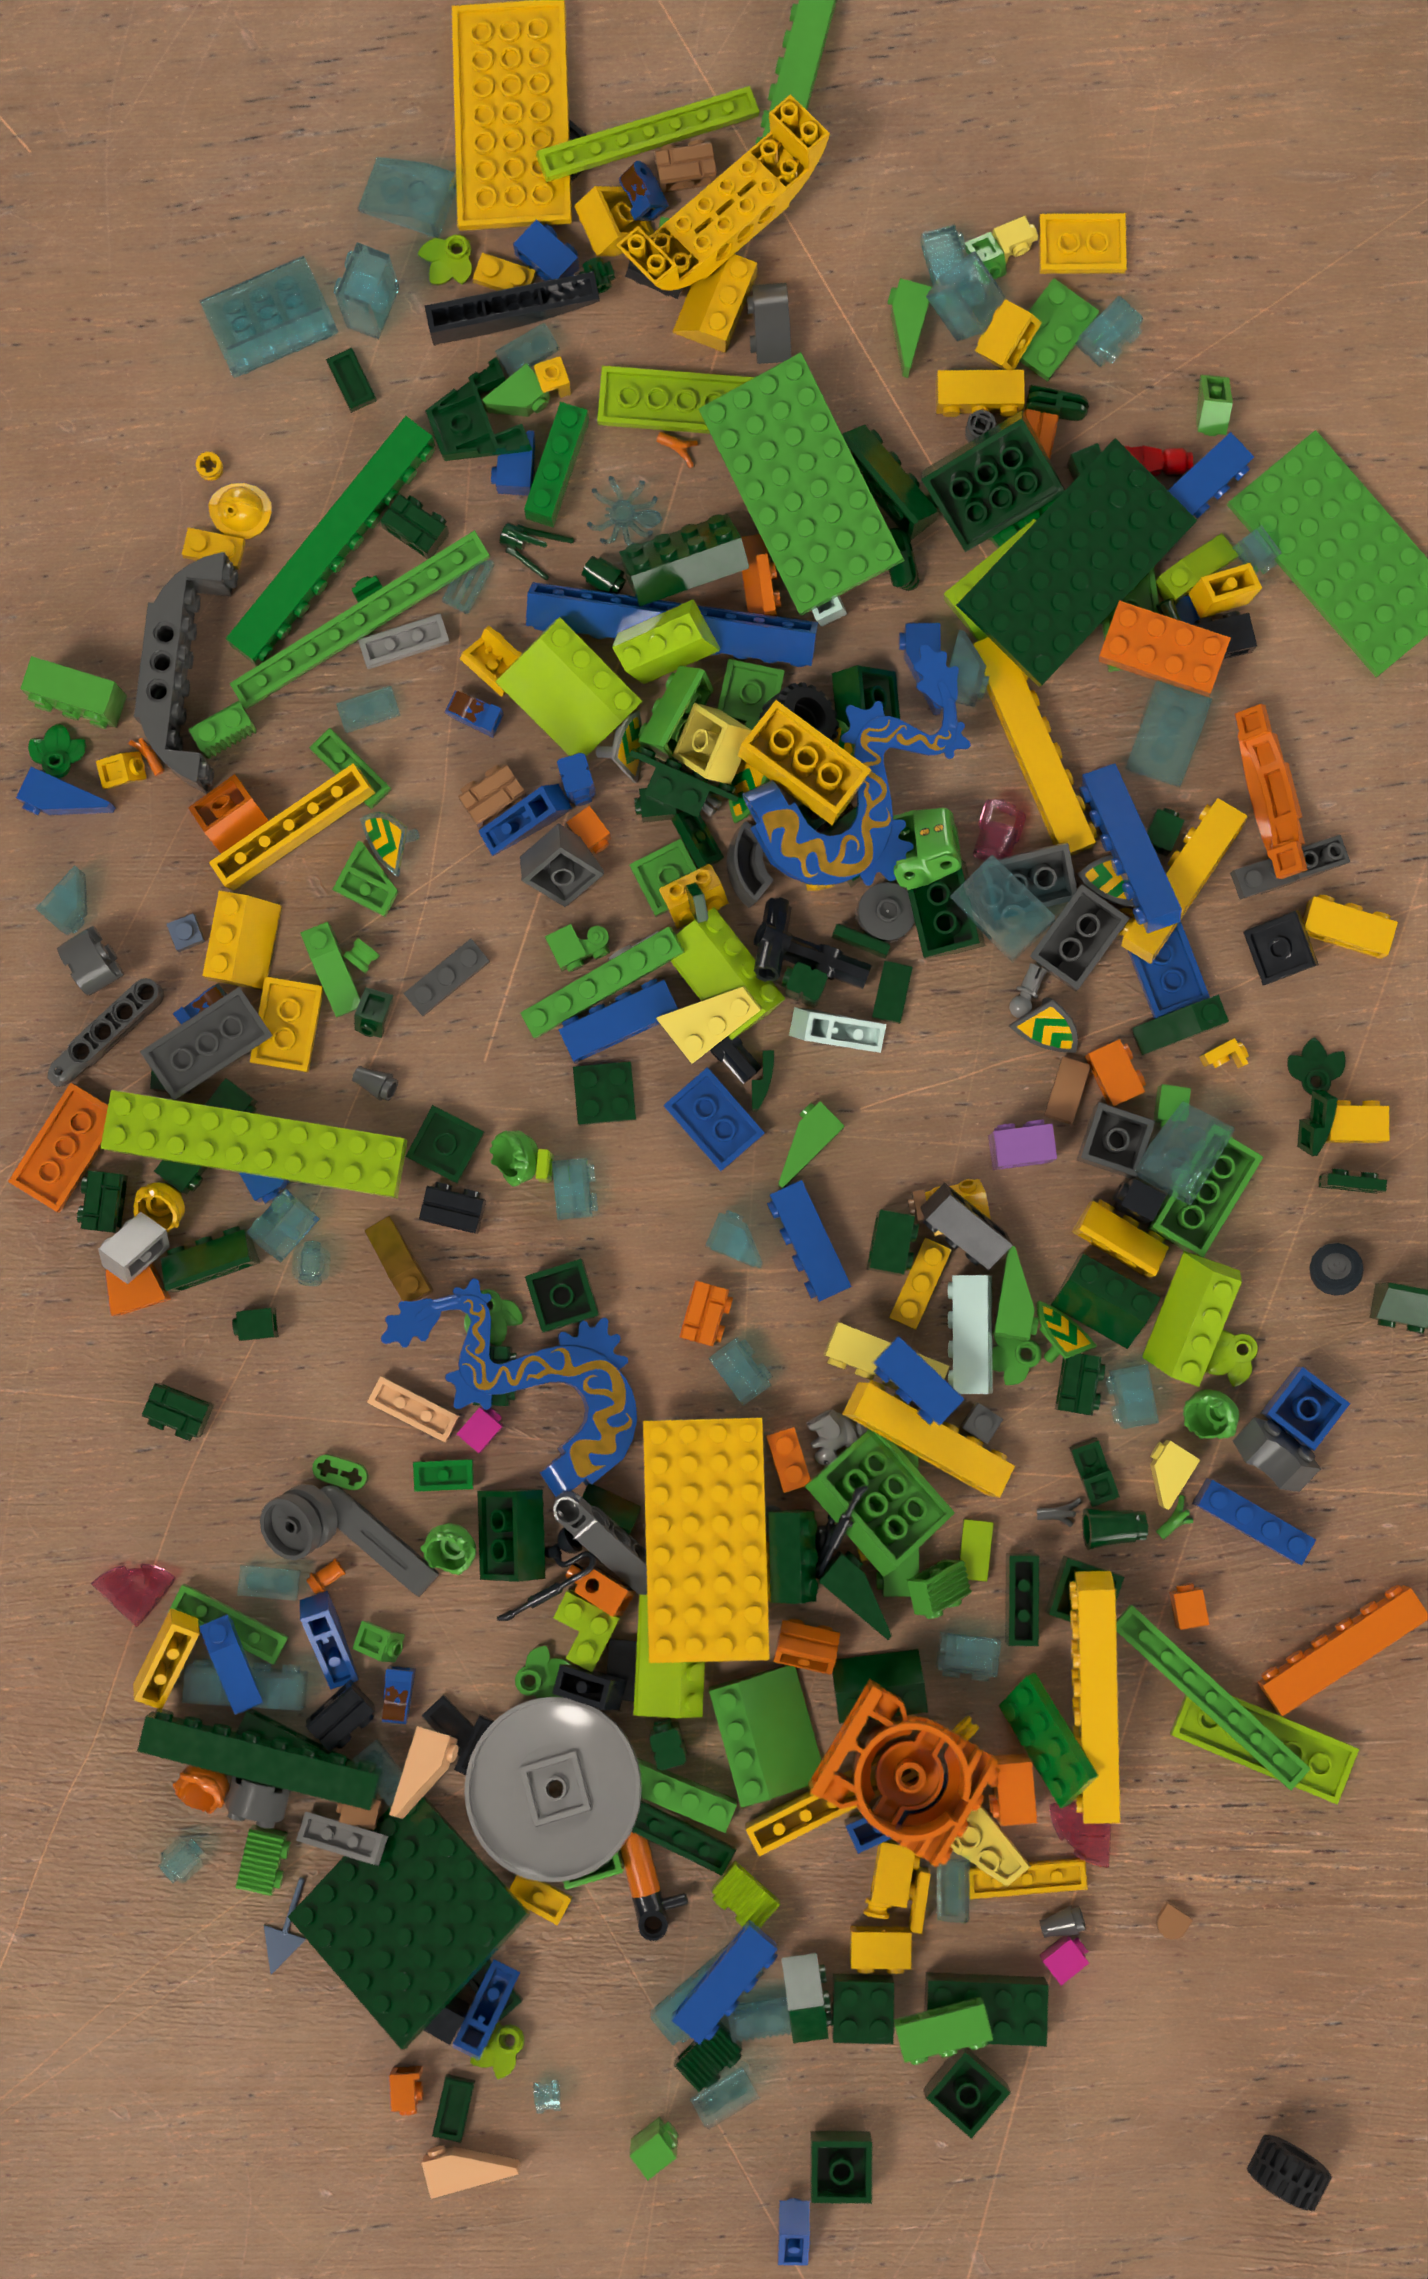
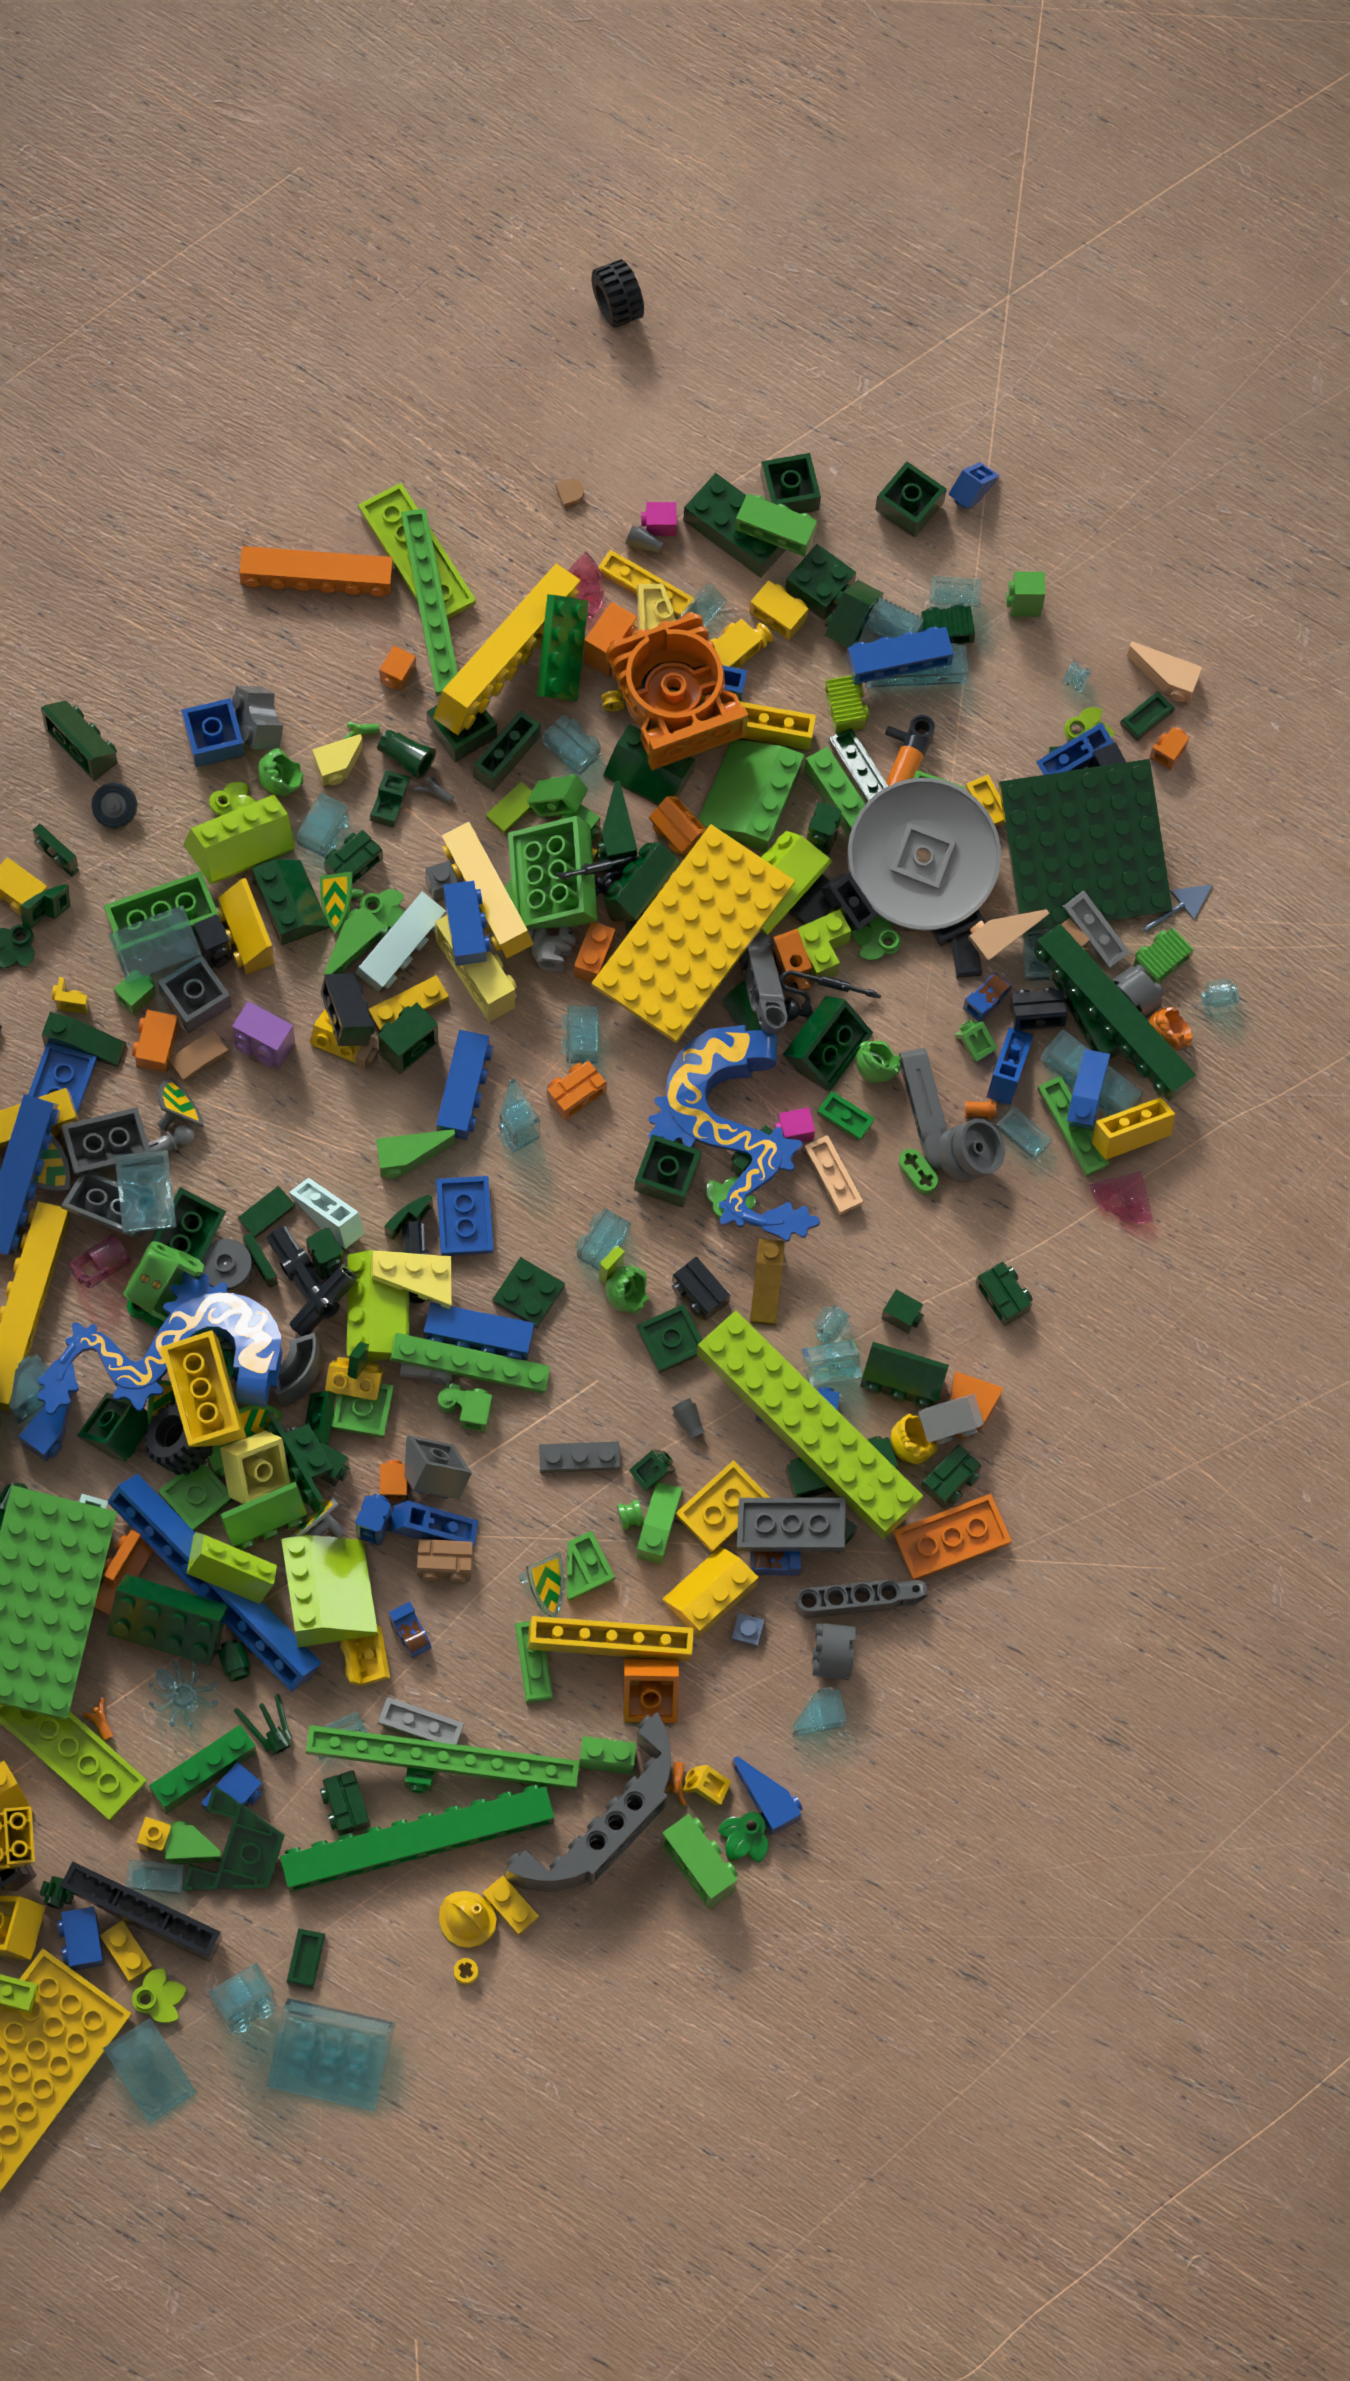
camera: 150 degrees left, 15 degrees down
(368, 709) = (486, 1695): clear light blue plate -> none
(919, 1901) = (733, 615): yellow tile -> none
(1254, 1521) = (308, 689): blue brick -> none

